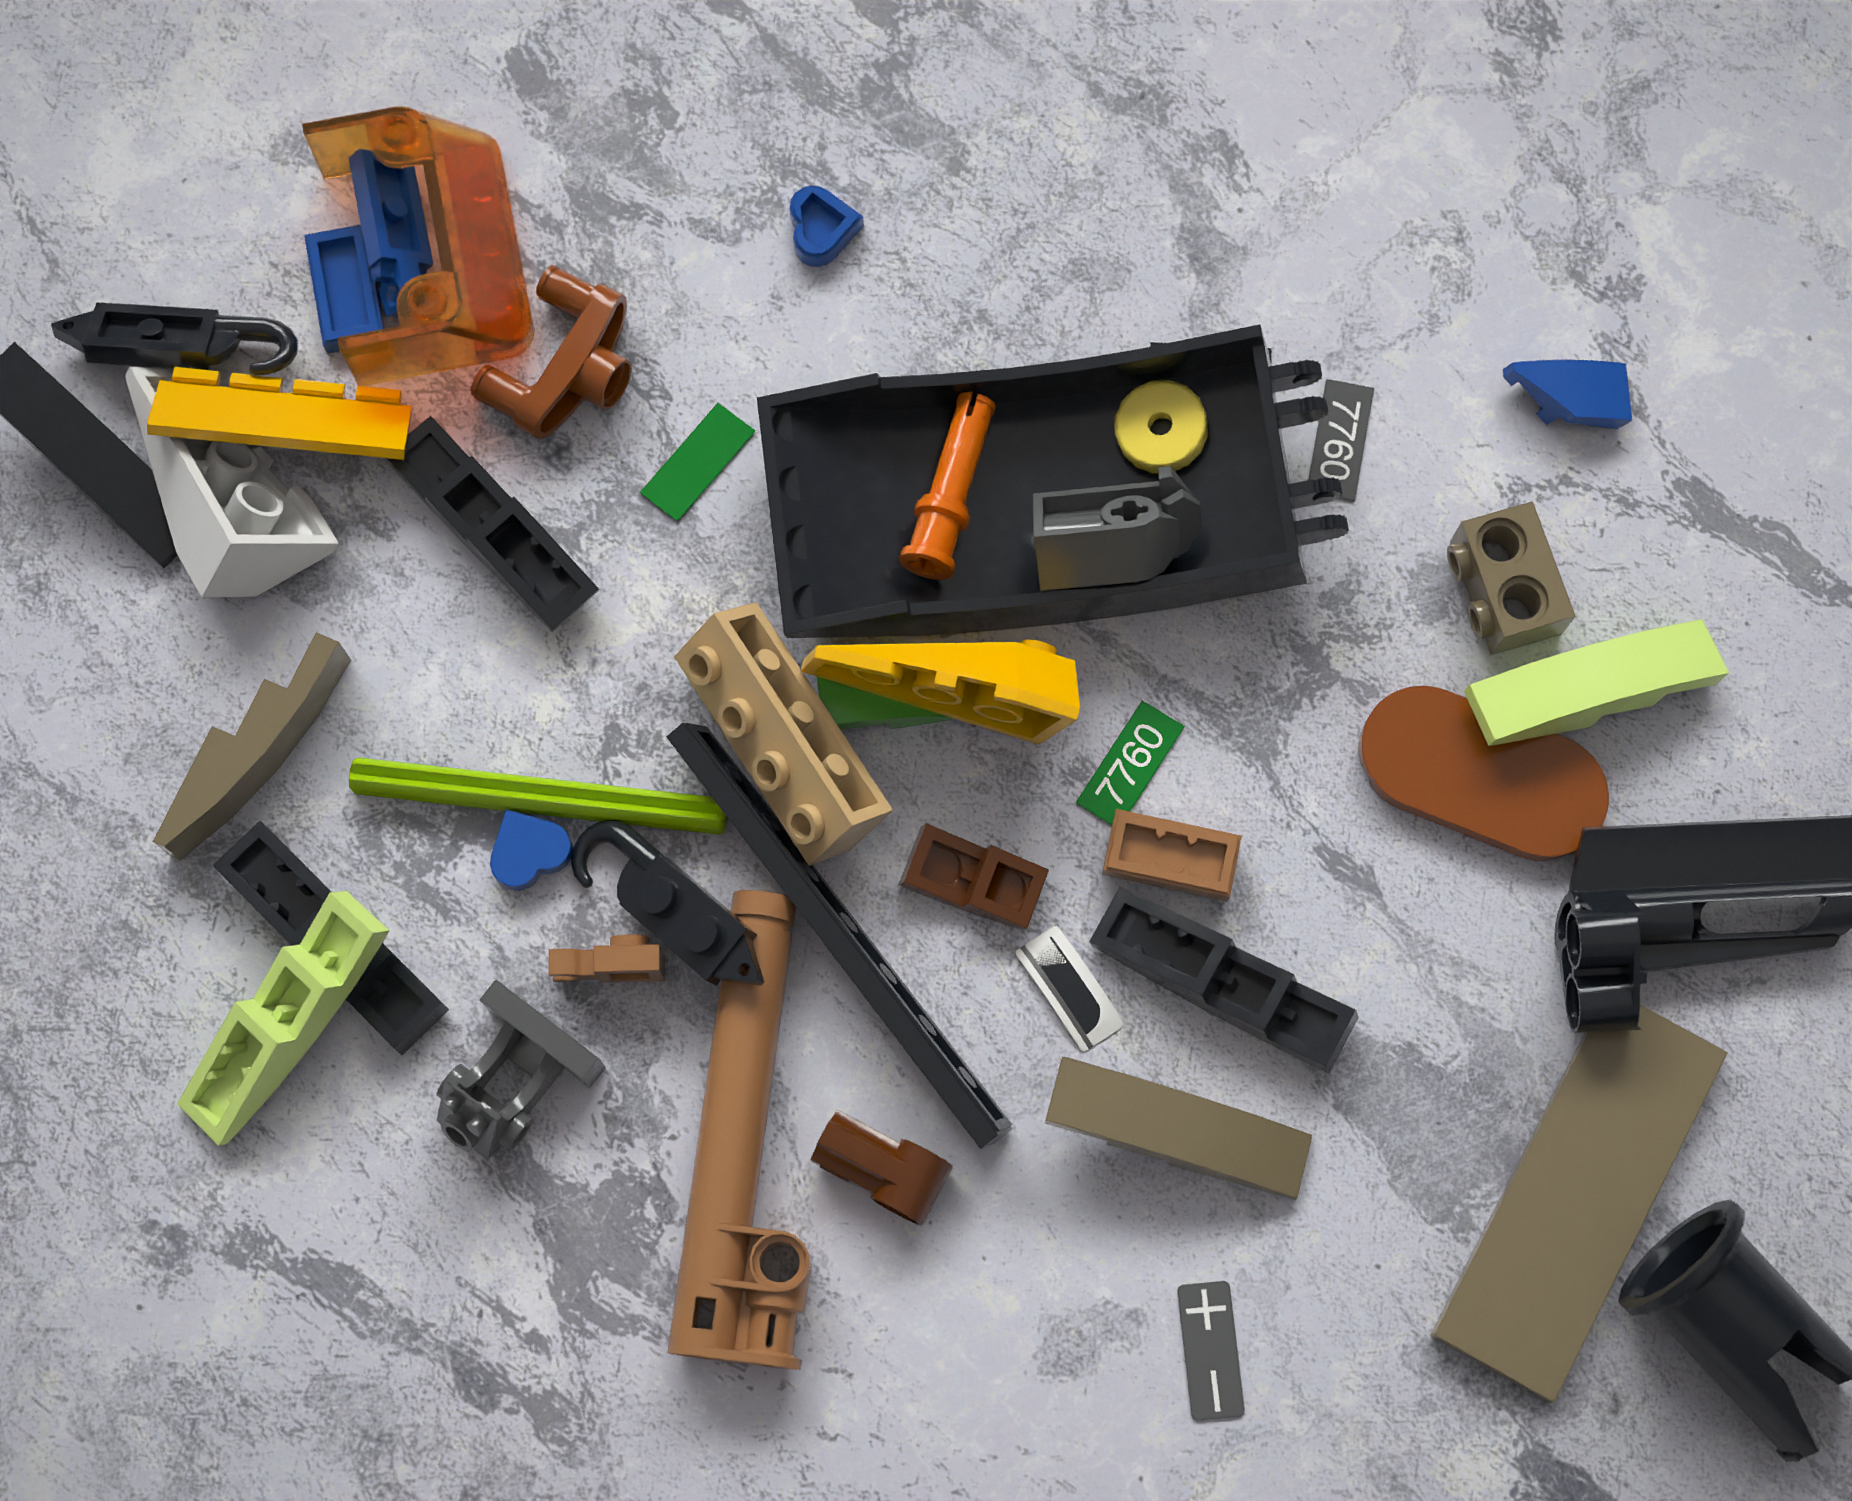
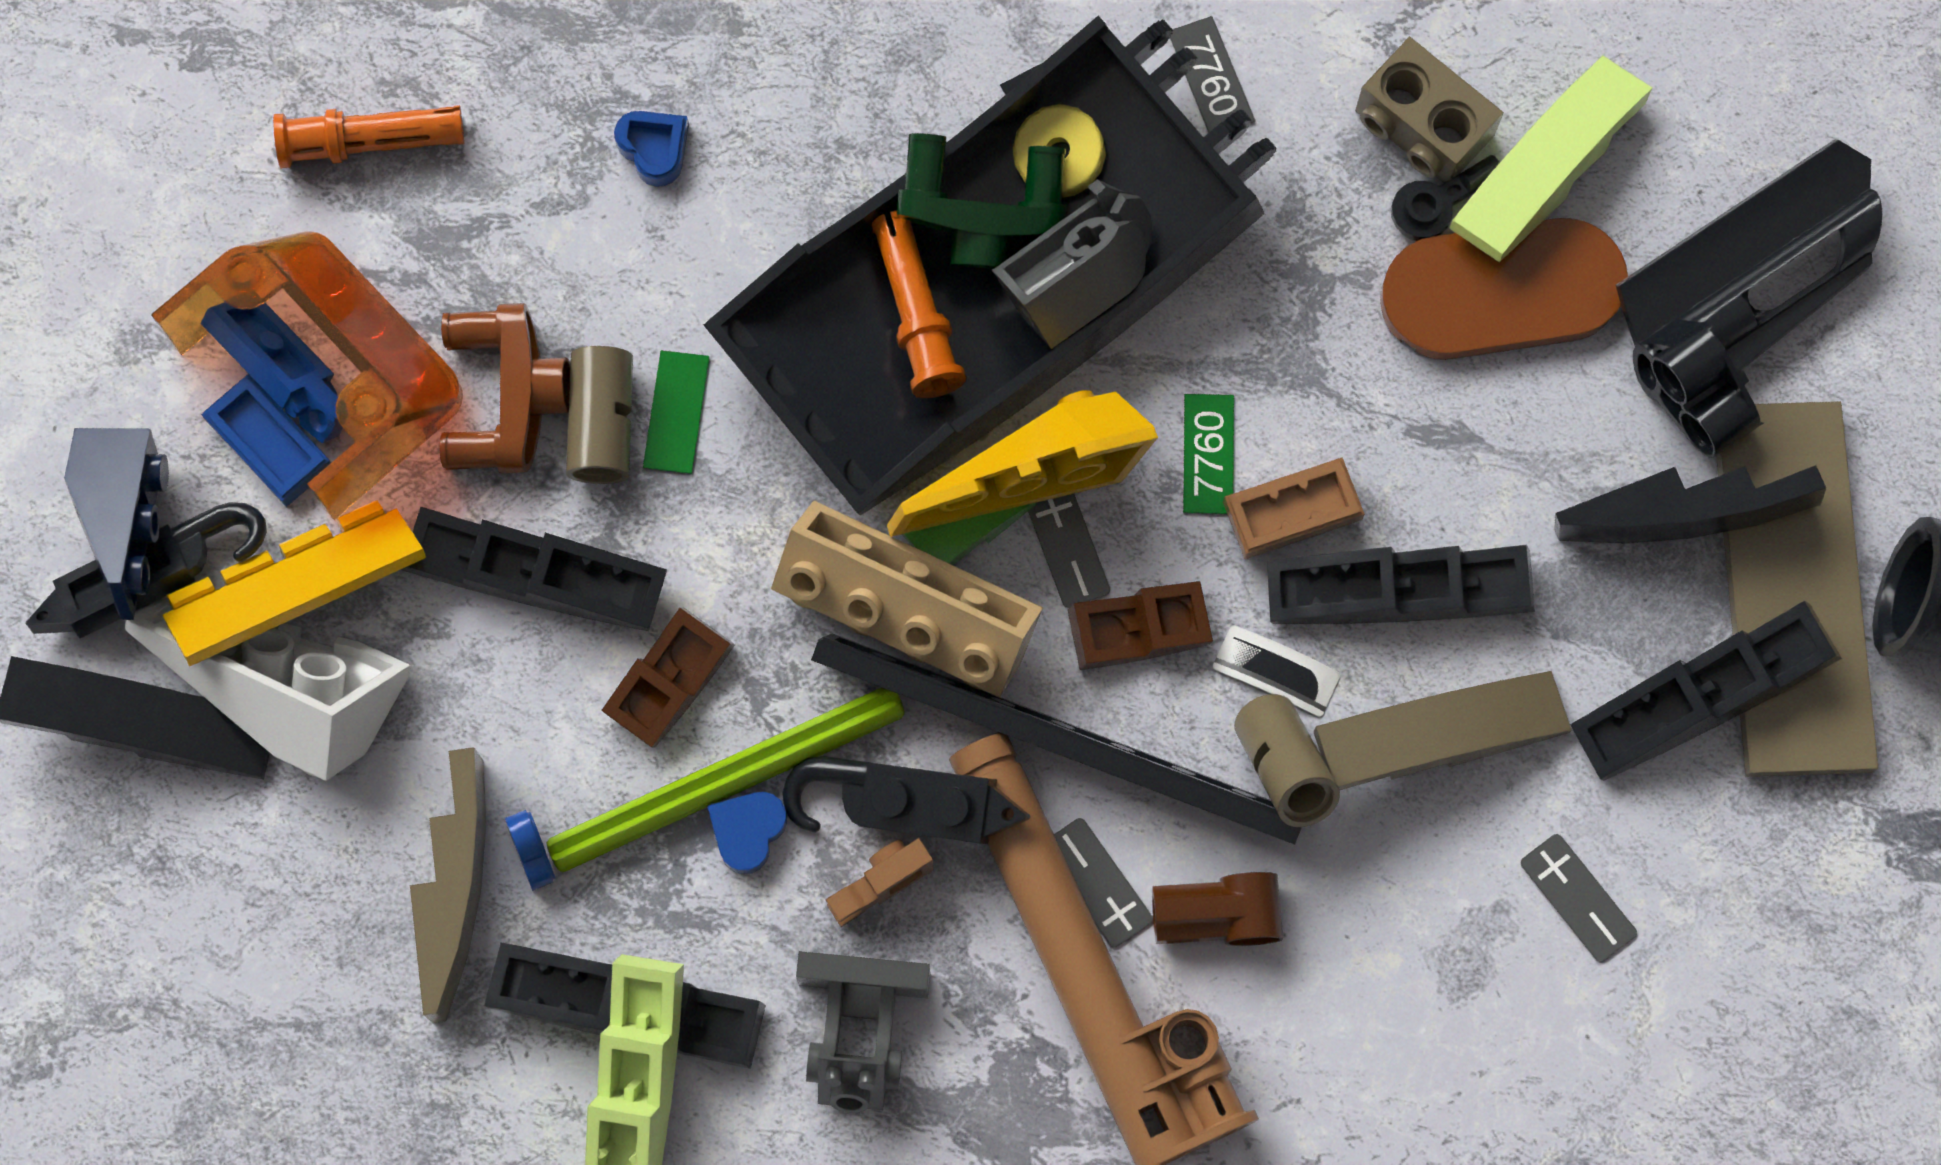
camera: 30 degrees left, 0 degrees up
(183, 262) = (114, 492): none -> slope
(335, 756) = (530, 849): none -> blue tile
(544, 683) = (668, 678): none -> reddish brown slope
(563, 69) = (340, 135): none -> orange pin
(627, 425) = (598, 415): none -> dark tan pin
(798, 1080) = (1103, 886): none -> dark grey sticker
(955, 776) = (1069, 550): none -> dark grey sticker
(1019, 1071) = (1286, 760): none -> dark tan pin
(1045, 450) = (980, 227): none -> dark green connector
(1438, 1237) = (1705, 691): none -> black slope
(1456, 661) = (1426, 208): none -> black plate
(1499, 1052) = (1664, 510): none -> black slope

